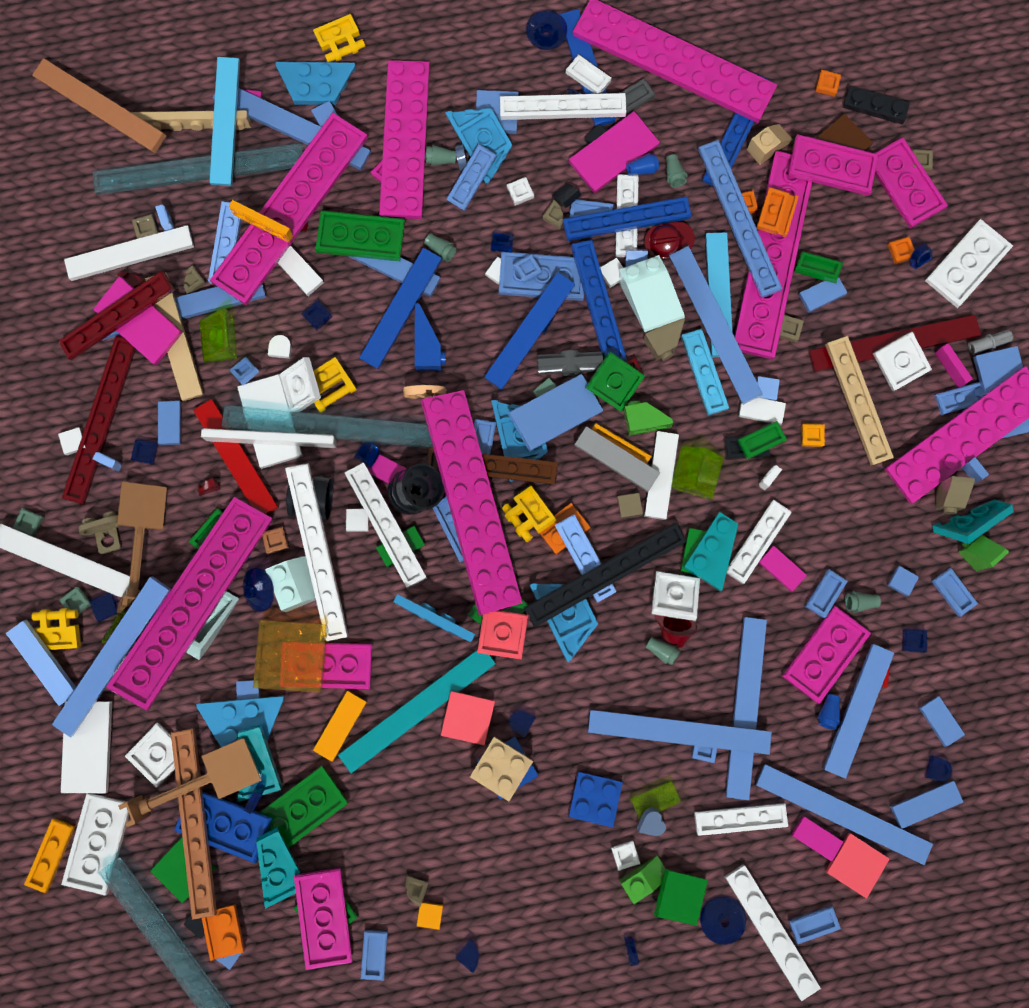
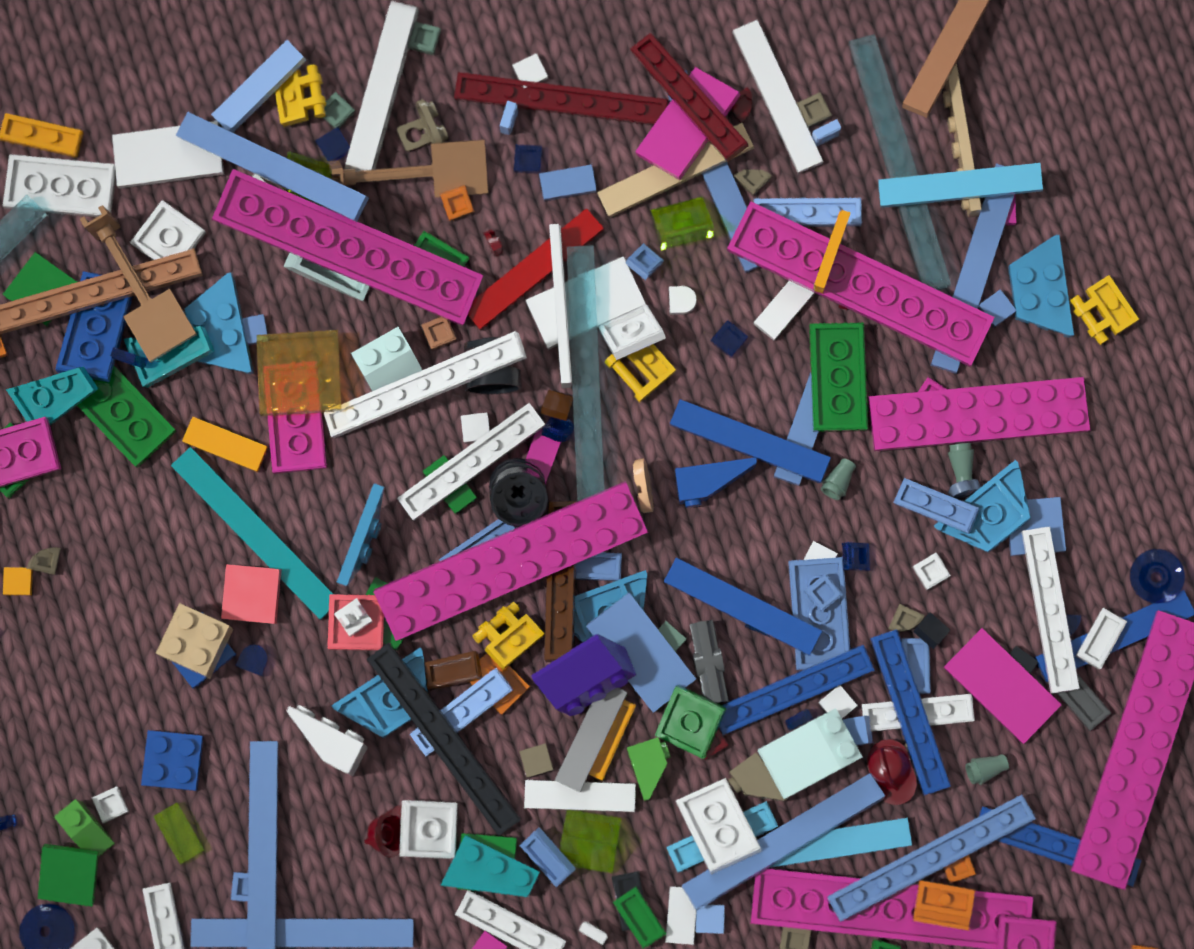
camera: 85 degrees right, 0 degrees up
(170, 512) = (457, 202): none -> orange tile
(258, 589) = (374, 322): clear blue dish -> none
(349, 453) = (557, 405): none -> reddish brown tile
(499, 634) = (353, 617): none -> white tile
(551, 561) = (453, 670): none -> reddish brown tile
(571, 453) = (585, 674): none -> dark purple slope
(605, 660) = (333, 746): none -> white slope
(622, 301) = (798, 719): none -> clear blue tile
(644, 165) = (986, 724): blue cone -> none
(651, 823) = (151, 830): sand blue tile -> none
(663, 650) = (358, 823): sand green cone -> none
(698, 371) = (718, 826): none -> white tile
(707, 505) = (547, 857): none -> medium blue tile
(767, 142) = (1046, 889): tan slope -> none

